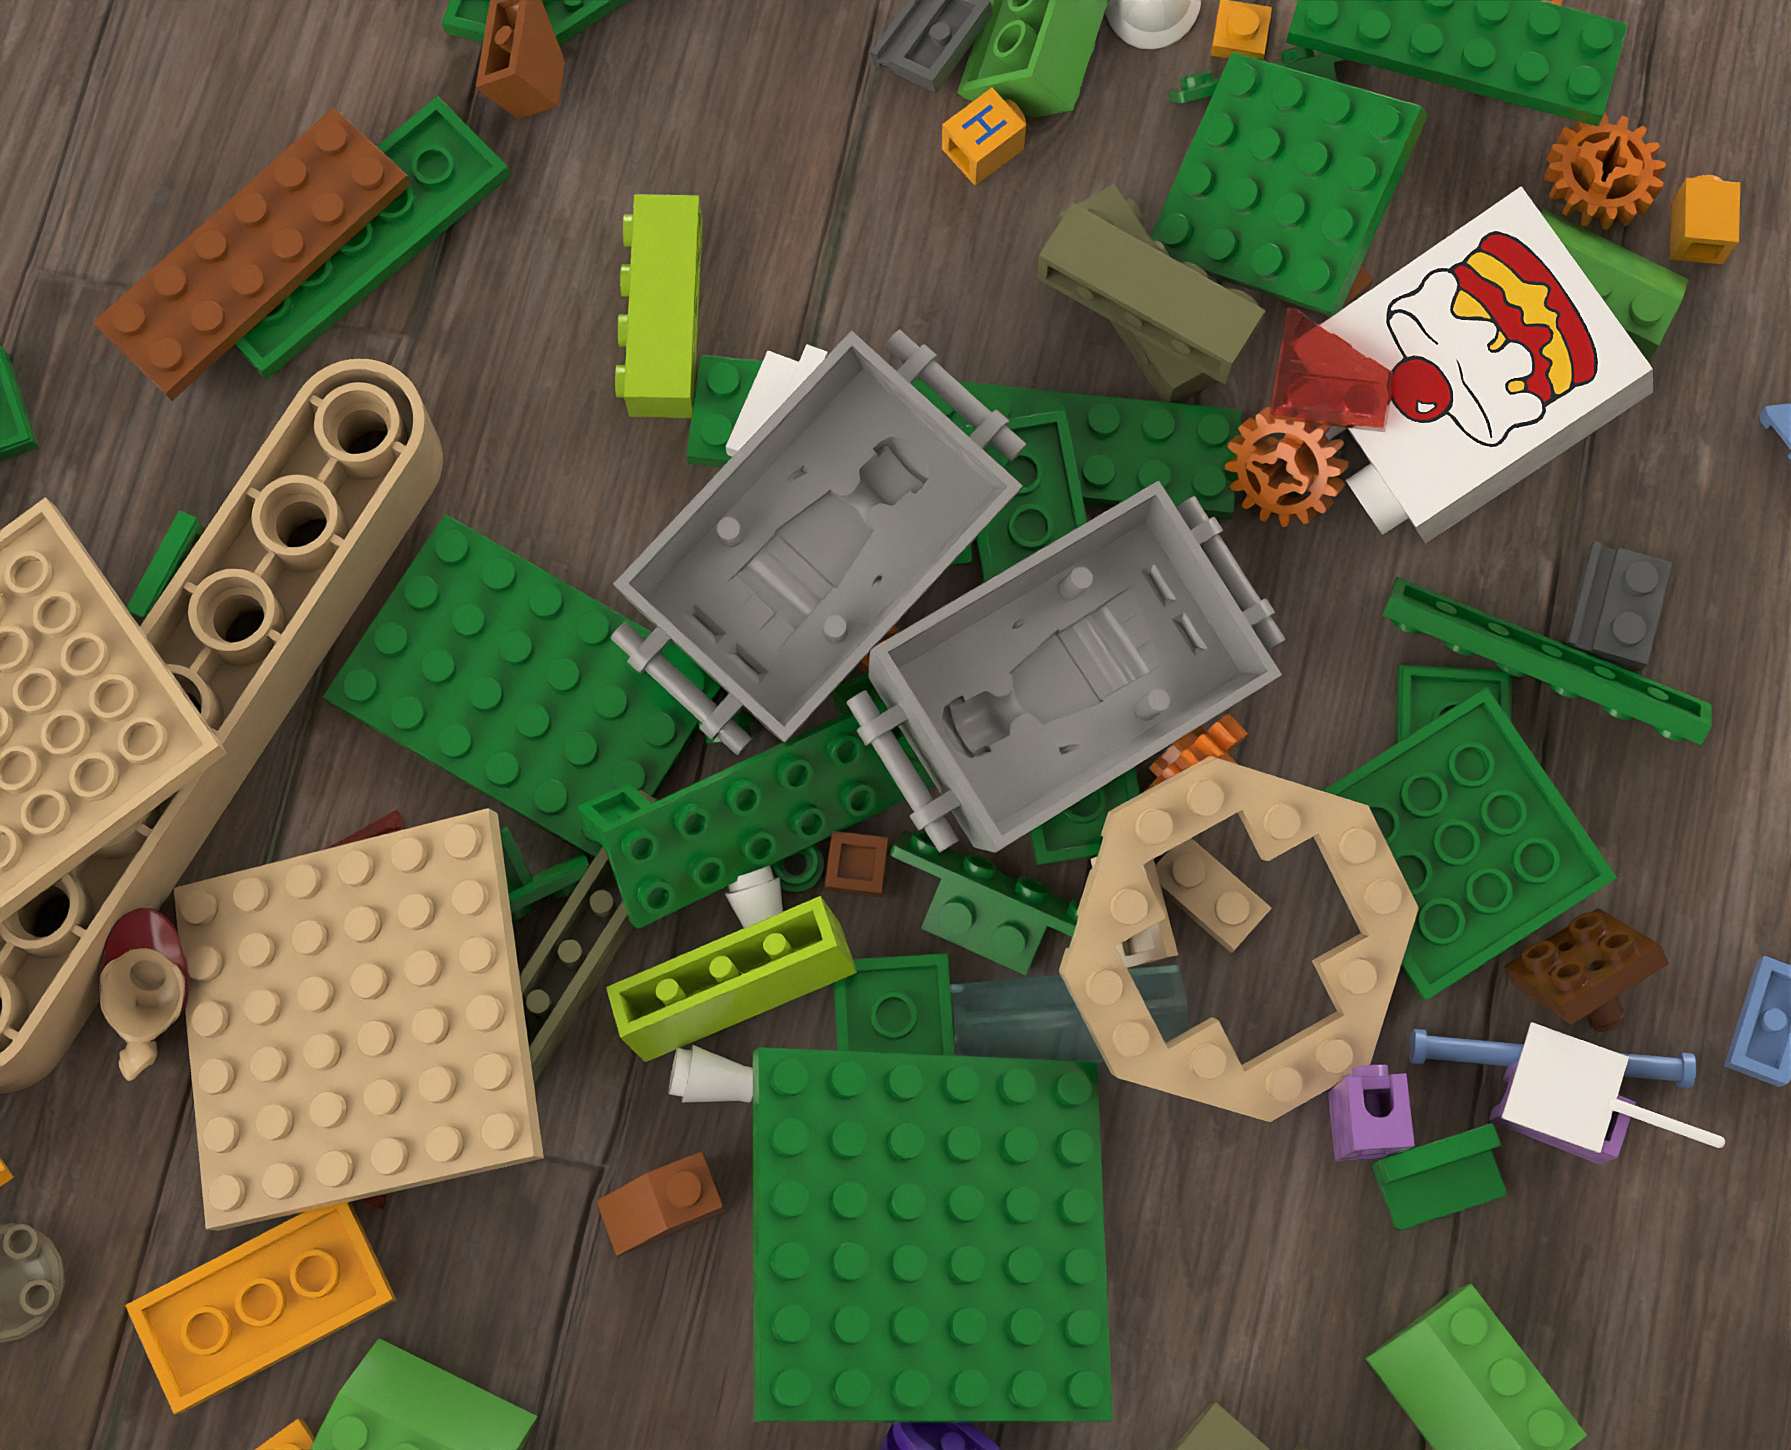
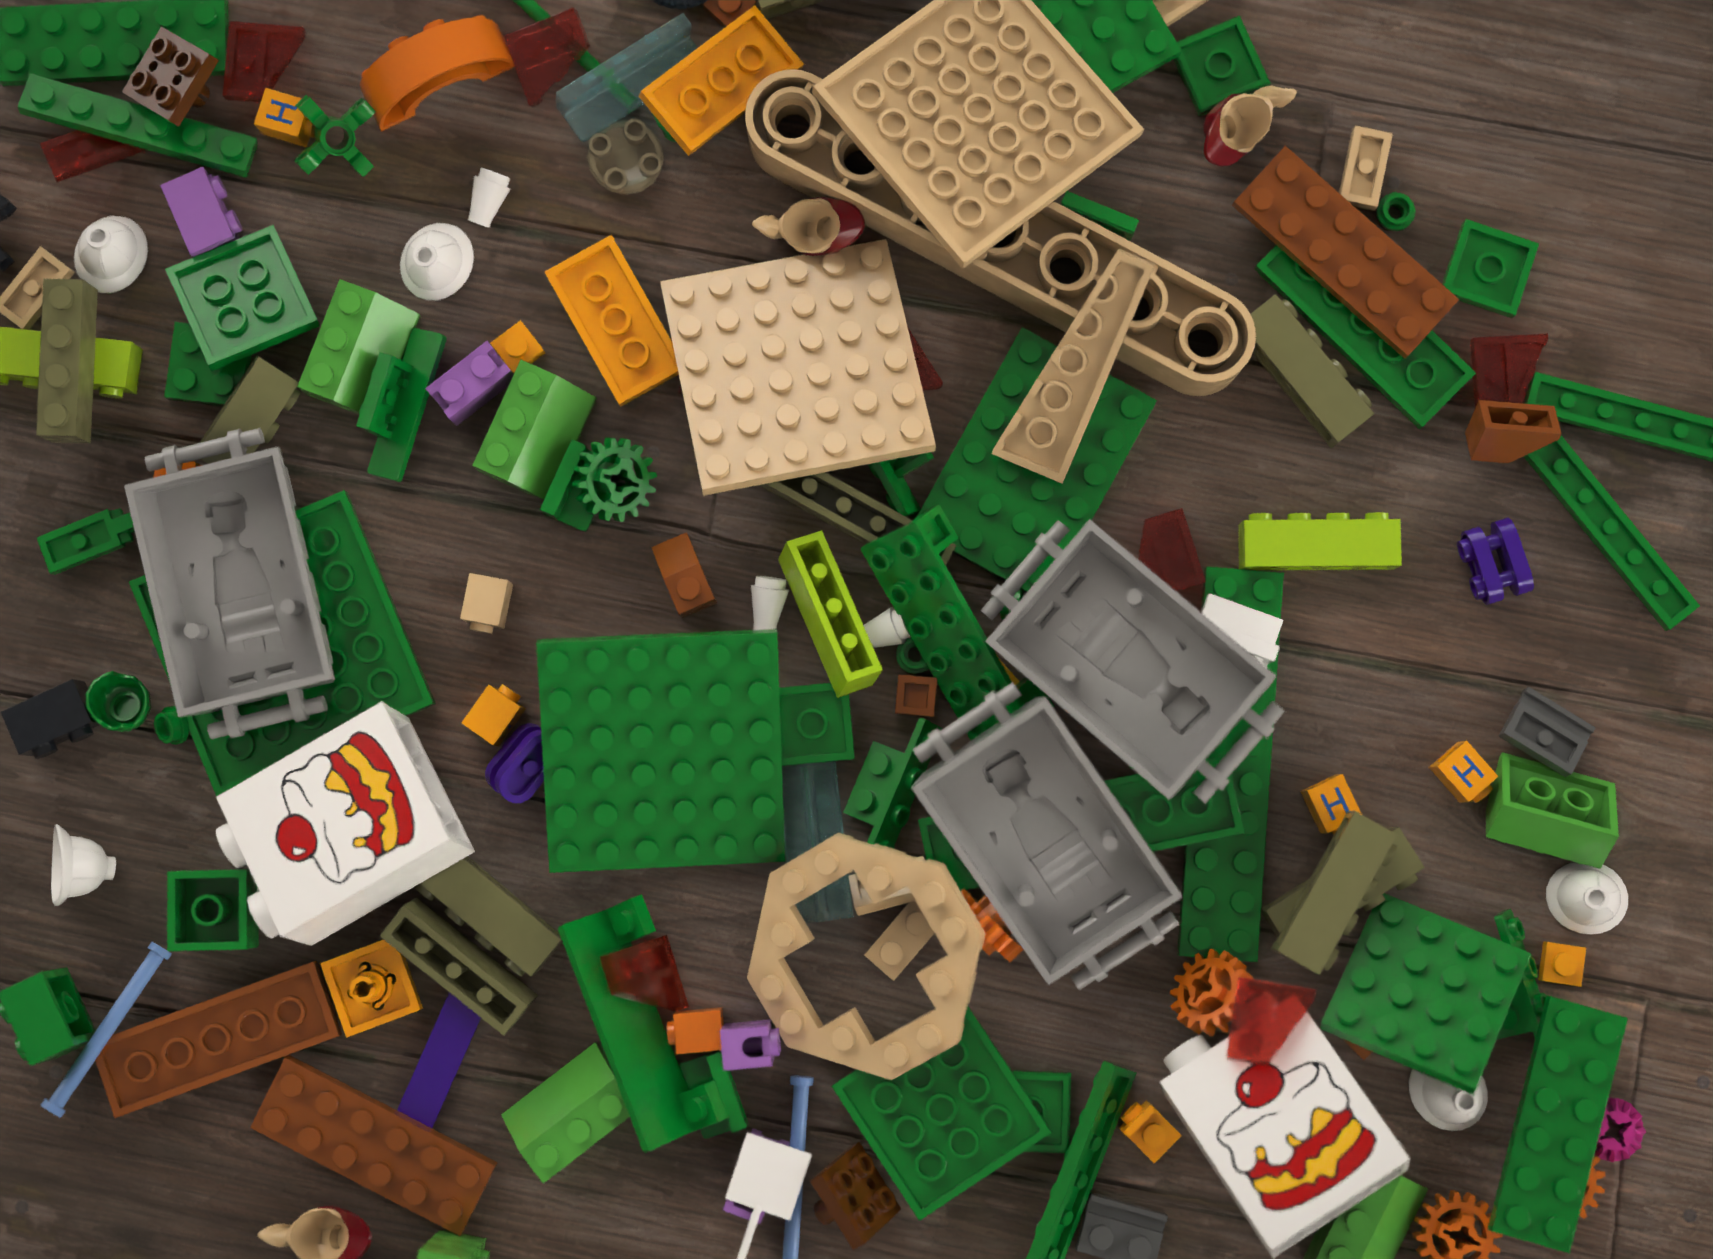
camera: 90 degrees right, 10 degrees up
(52, 381) = (1241, 122): none -> tan hair
(133, 225) = (1365, 167): none -> tan plate
(199, 178) = (1401, 202): none -> green plate
(292, 73) = (1489, 268): none -> green plate
(426, 624) = (1062, 400): none -> tan wing
(427, 306) = (1306, 373): none -> olive brick
(431, 63) = (1504, 365): none -> clear red wing
(485, 1289) = (610, 495): none -> green gear
(517, 1366) = (560, 499): none -> green panel
(651, 500) = (1170, 551): none -> clear red wing
(698, 83) = (1486, 581): none -> dark purple brick
(1023, 306) = (1329, 802): none -> light orange brick
(1266, 1272) = (646, 974): none -> clear red wing
(1348, 1197) = (696, 1030): none -> orange brick
(1348, 1294) = (634, 1033): none -> green bracket
(1428, 183) = (1446, 1105): none -> white hat
(1475, 563) = (1148, 1130): none -> light orange bracket

